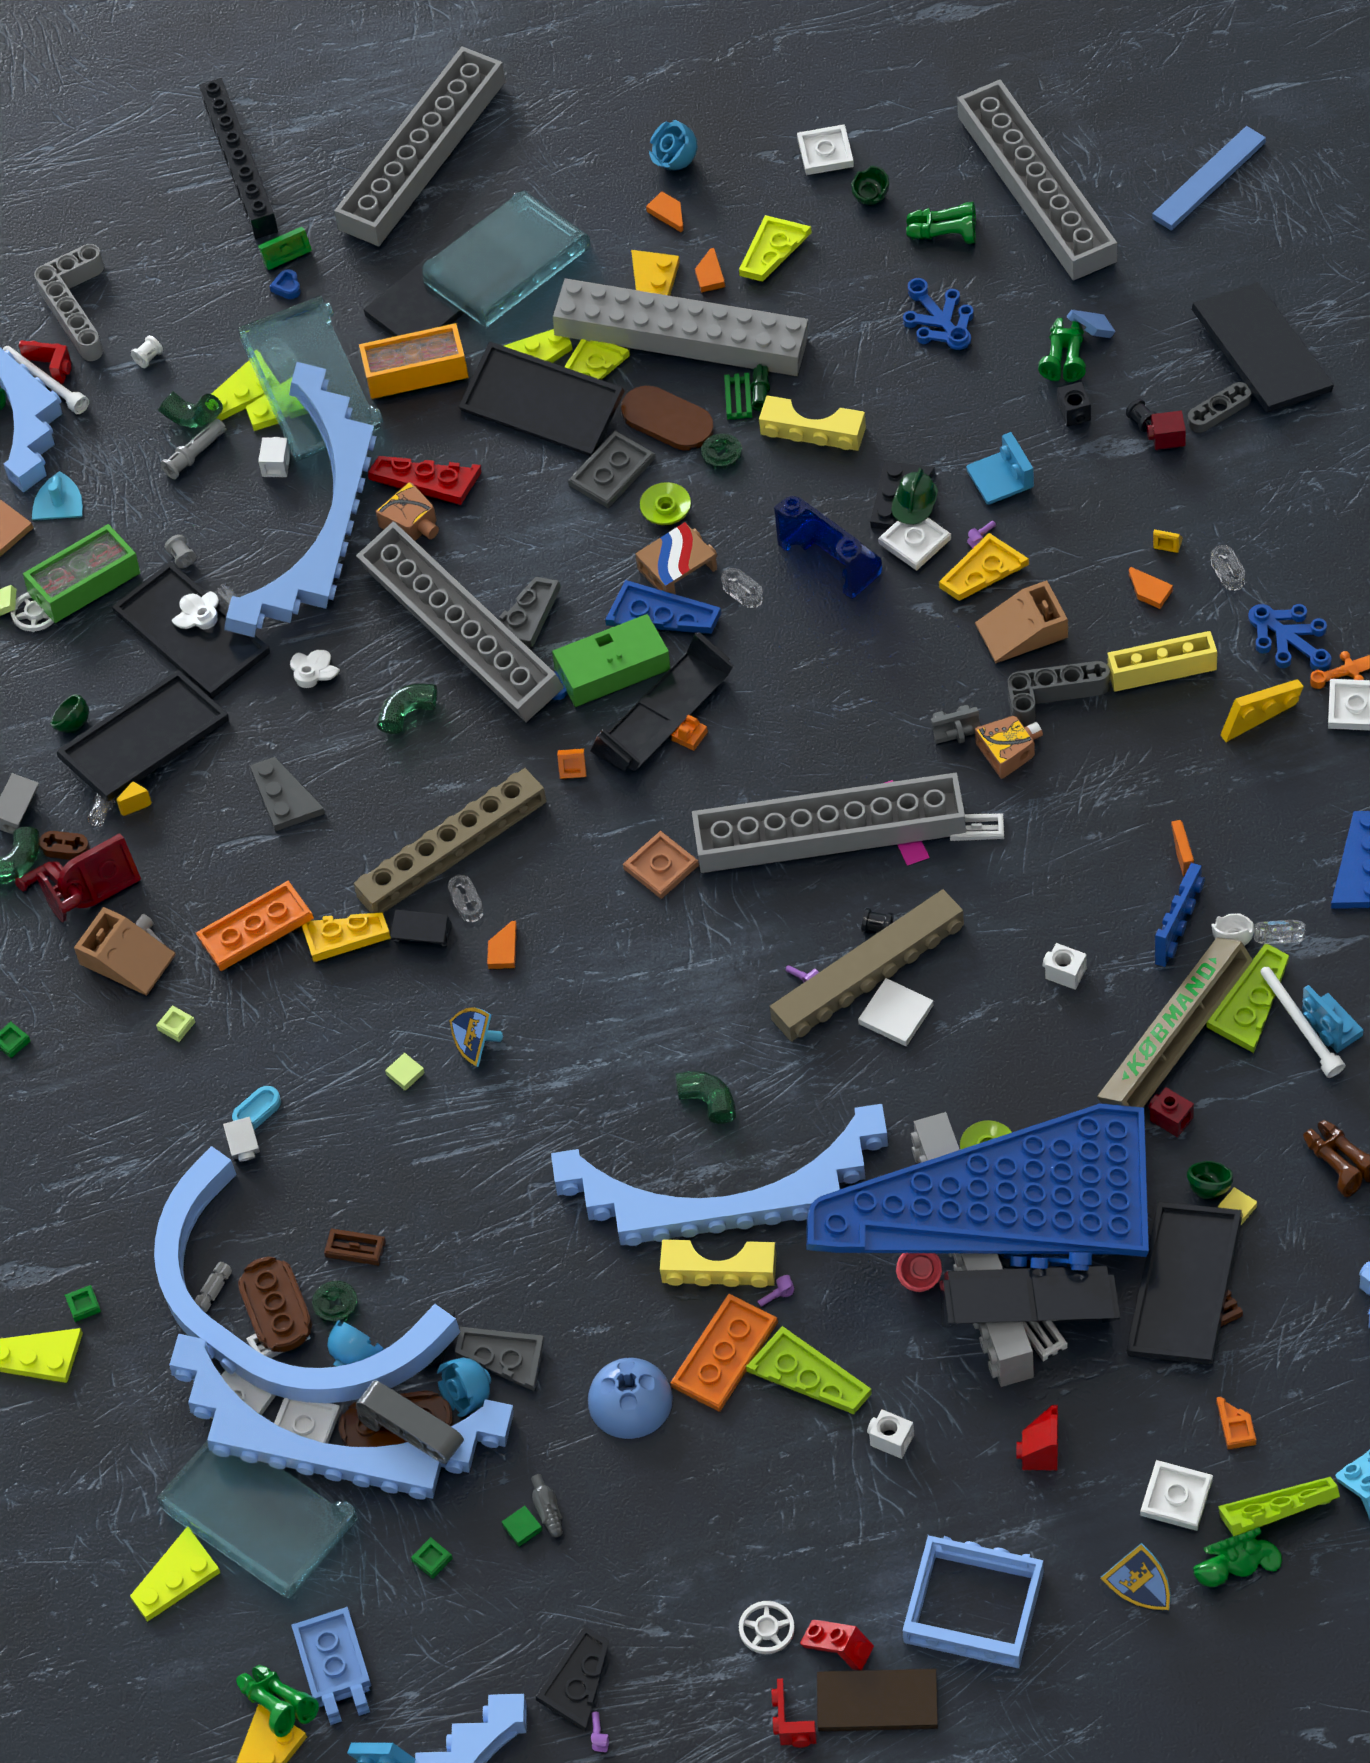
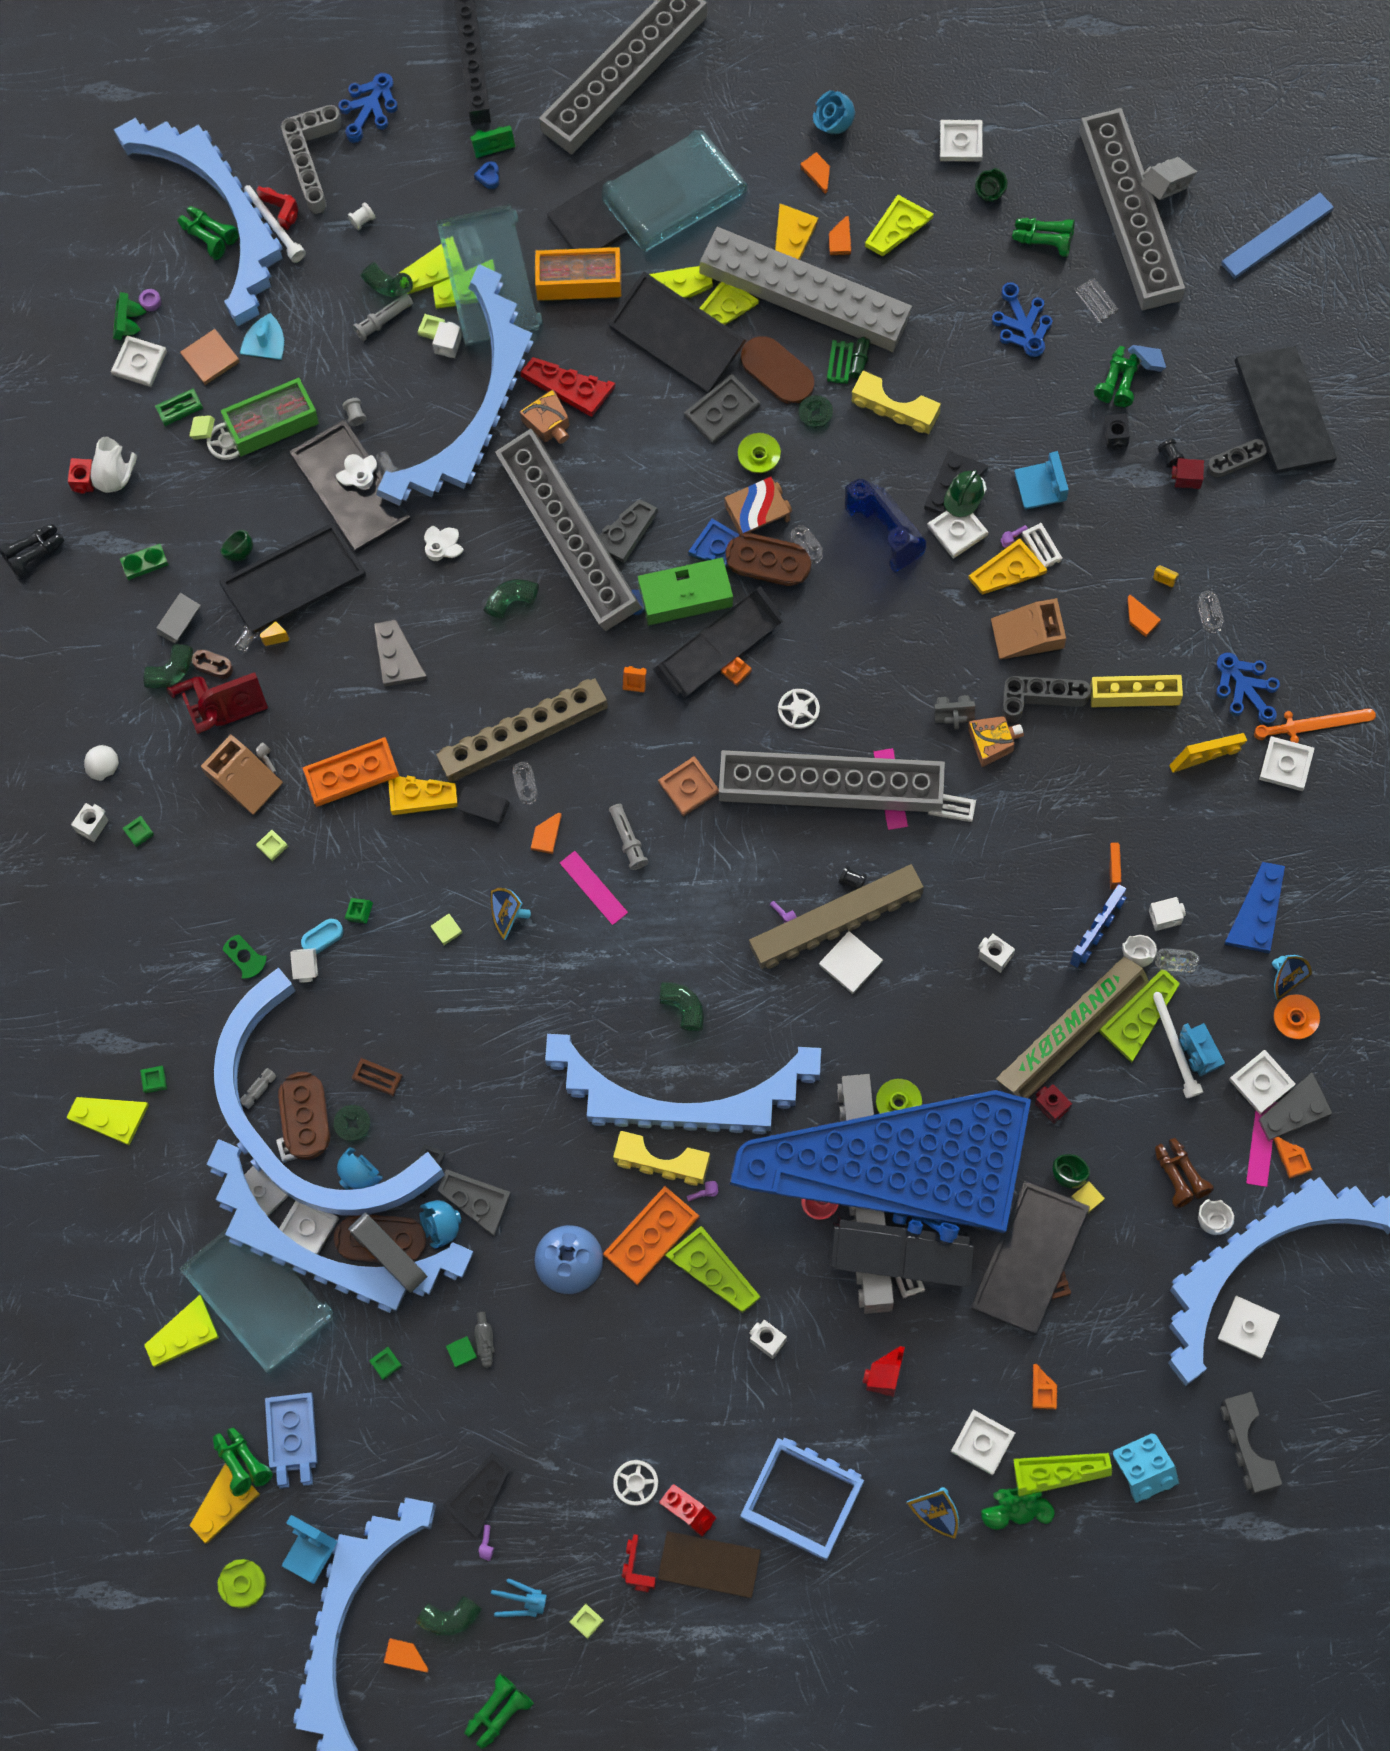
camera: 10 degrees right, 15 degrees up
(141, 217) = (369, 103): none -> blue plant
(174, 1160) = (248, 968): none -> green piece
(249, 449) = (429, 326): none -> yellowish green tile
(295, 1071) = (358, 910): none -> green tile
(571, 994) = (593, 887): none -> dark pink sticker
(606, 938) = (631, 845): none -> light grey pin
(701, 608) = (768, 559): none -> reddish brown tile
(772, 759) = (798, 708): none -> white wheel
(1012, 538) = (1050, 561): none -> white tile
(1015, 281) = (1106, 313): none -> clear tile
(1070, 138) = (1168, 178): none -> light grey brick
(1255, 886) = (1167, 913): none -> white brick

